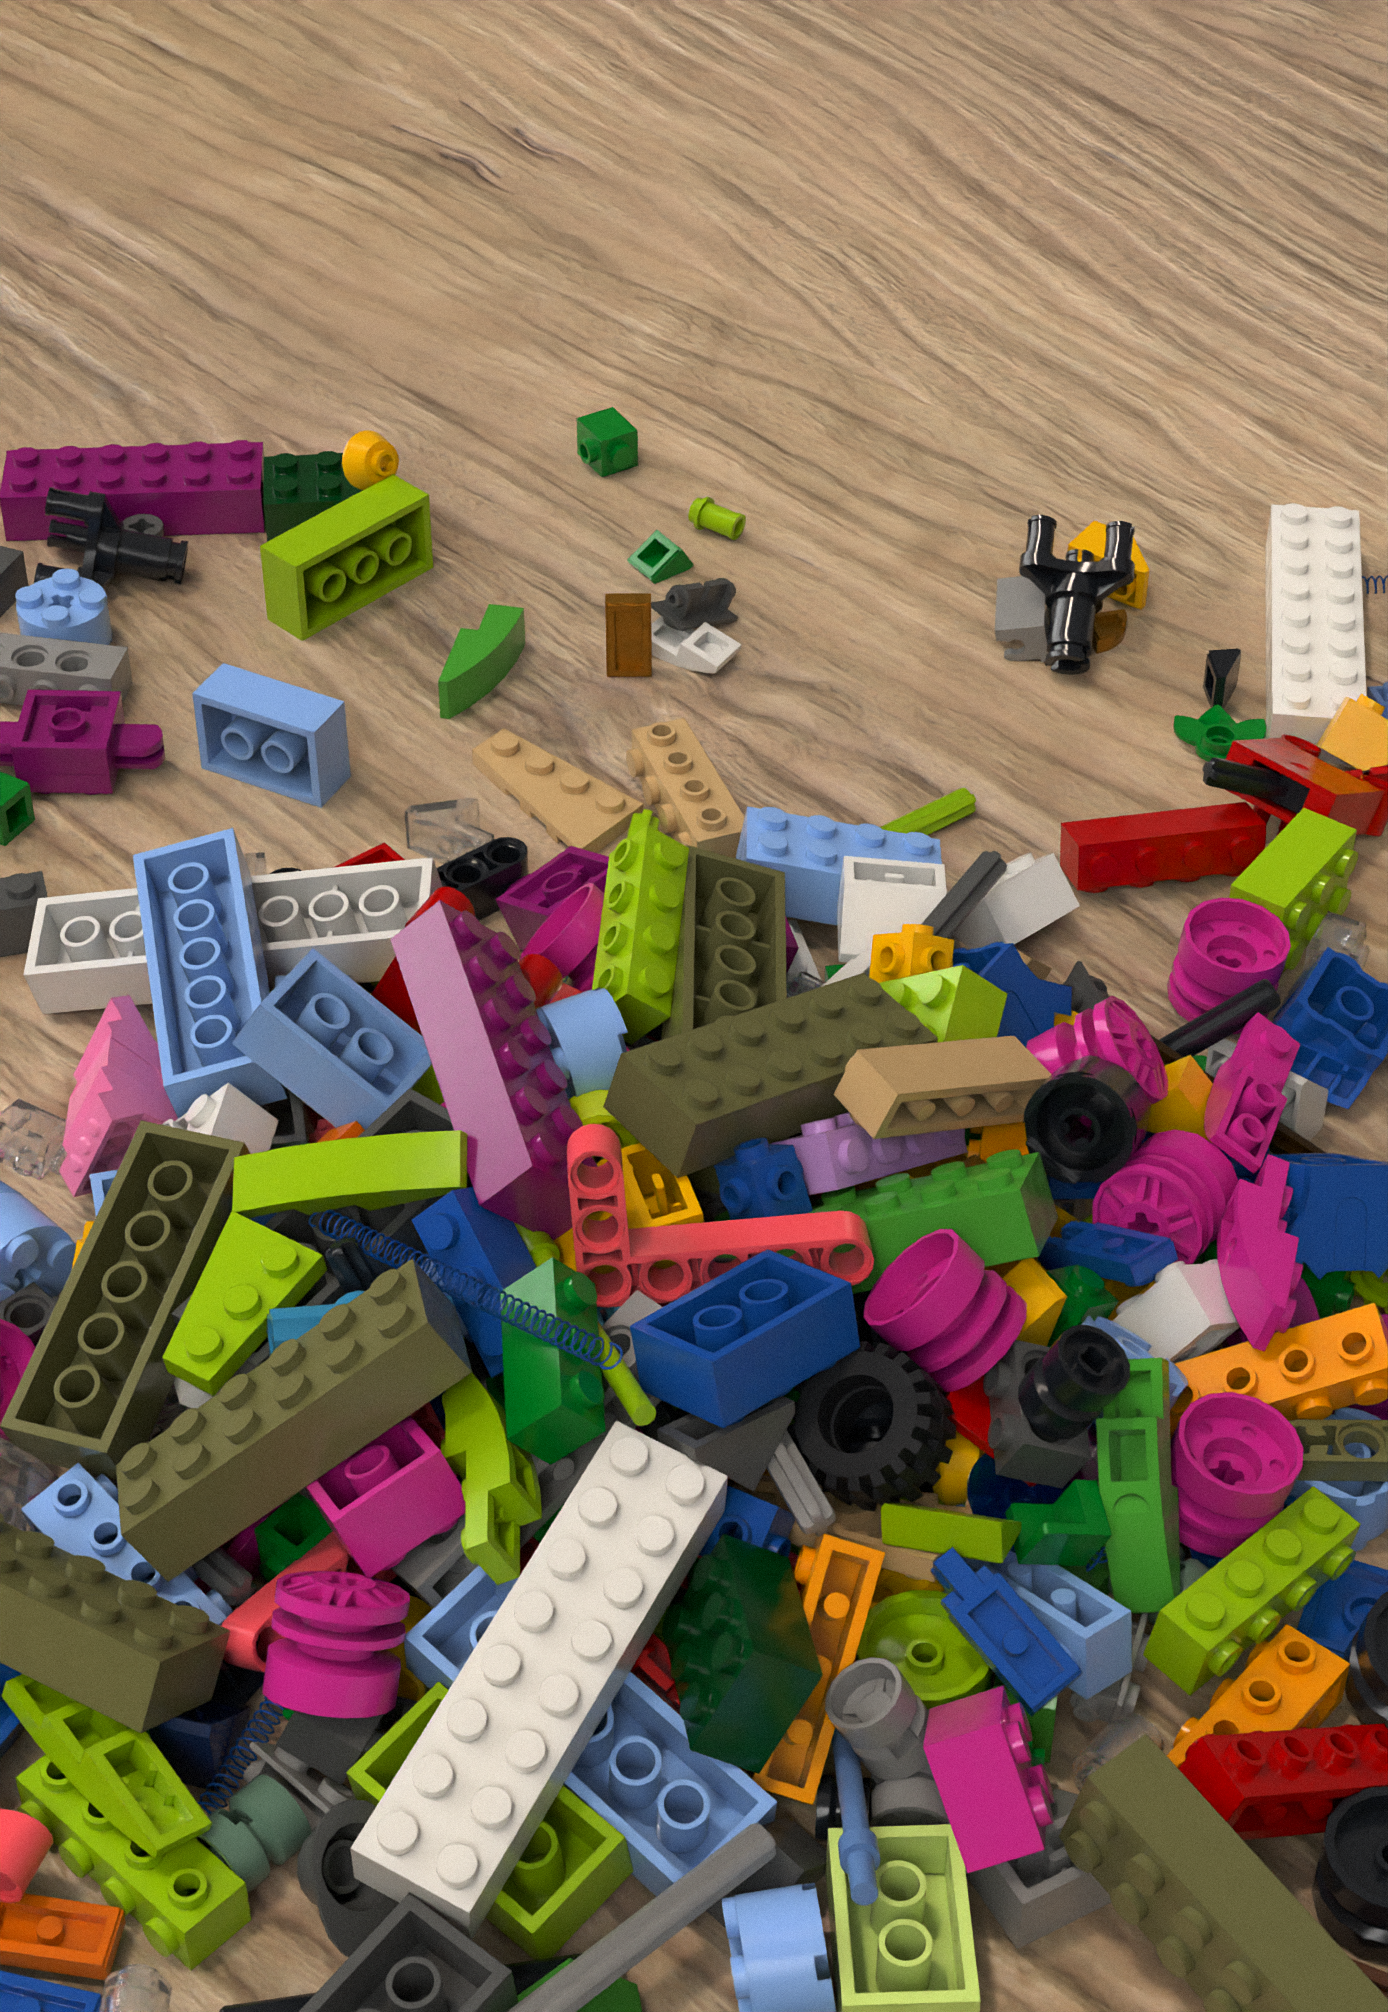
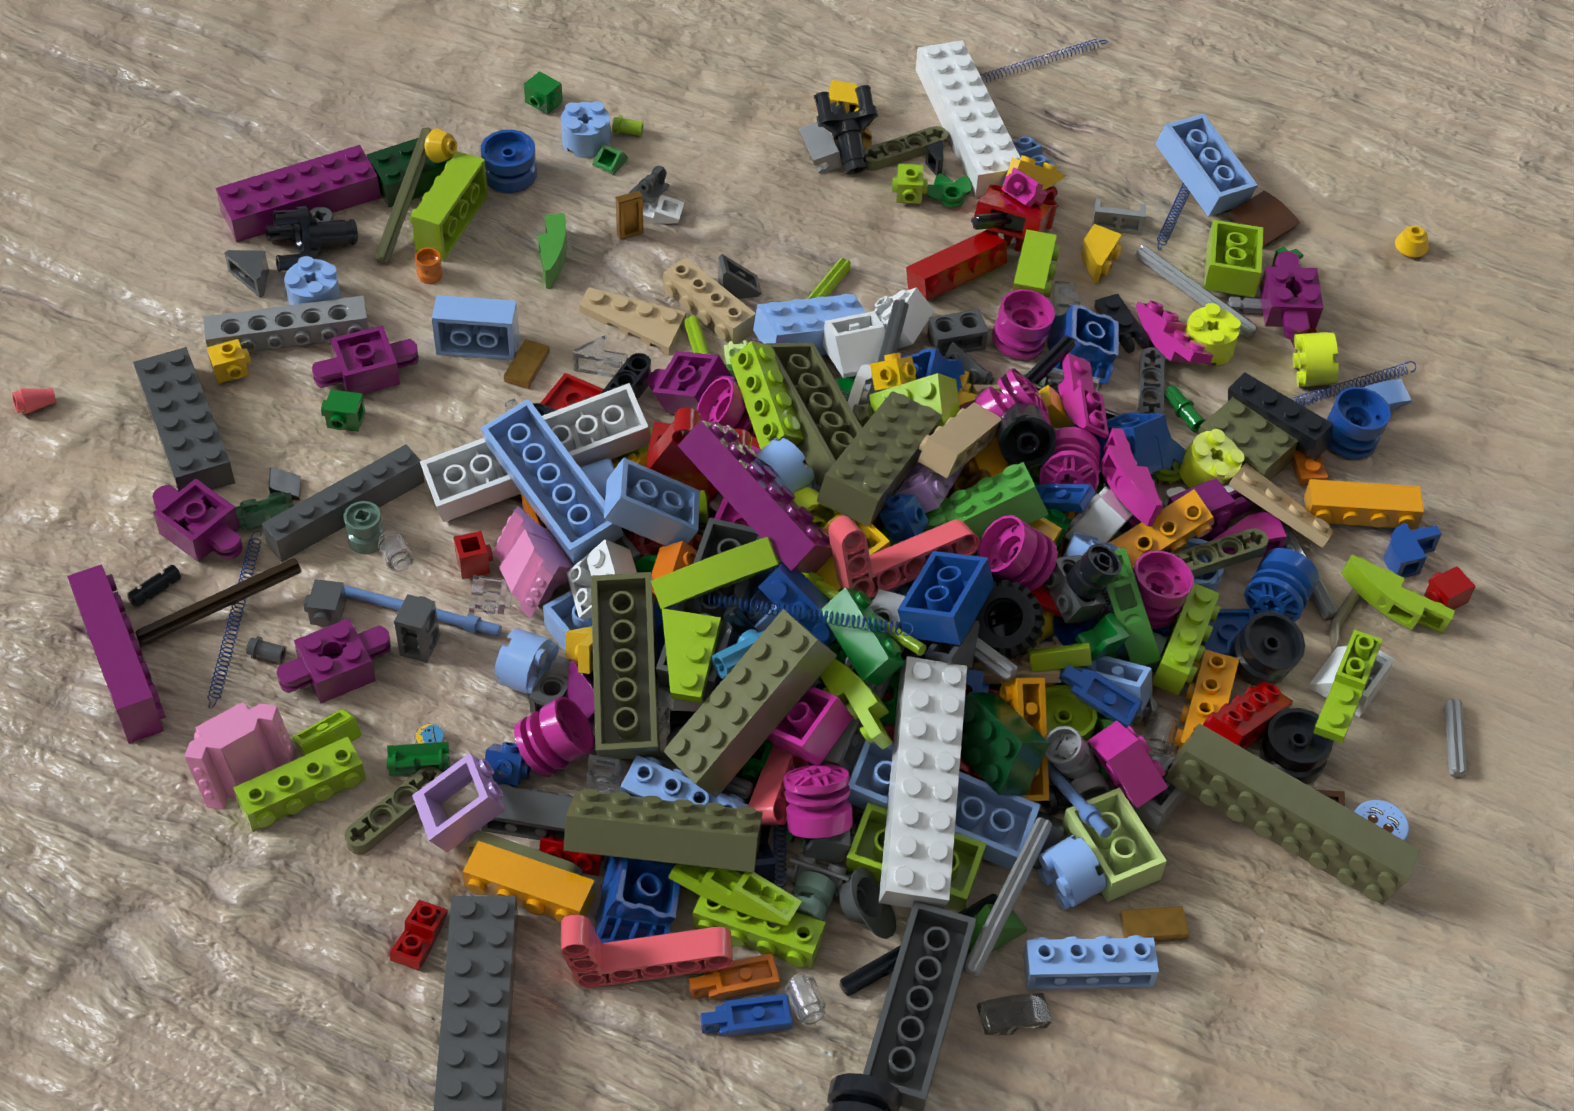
camera: 25 degrees left, 10 degrees up
(40, 1067) = (472, 554): none -> red brick
(266, 639) = (428, 265): none -> orange wheel
(292, 514) = (403, 199): none -> olive axle
(332, 815) = (526, 363): none -> pearl gold tile
(485, 519) = (509, 160): none -> blue wheel
(638, 500) = (585, 128): none -> light blue brick
(757, 775) = (737, 279): none -> dark grey slope
(1110, 948) = (963, 328): none -> dark grey brick
(1125, 654) = (879, 157): none -> olive beam
(1146, 703) = (909, 184): none -> lime brick
(1334, 743) = (1024, 188): none -> dark pink hips

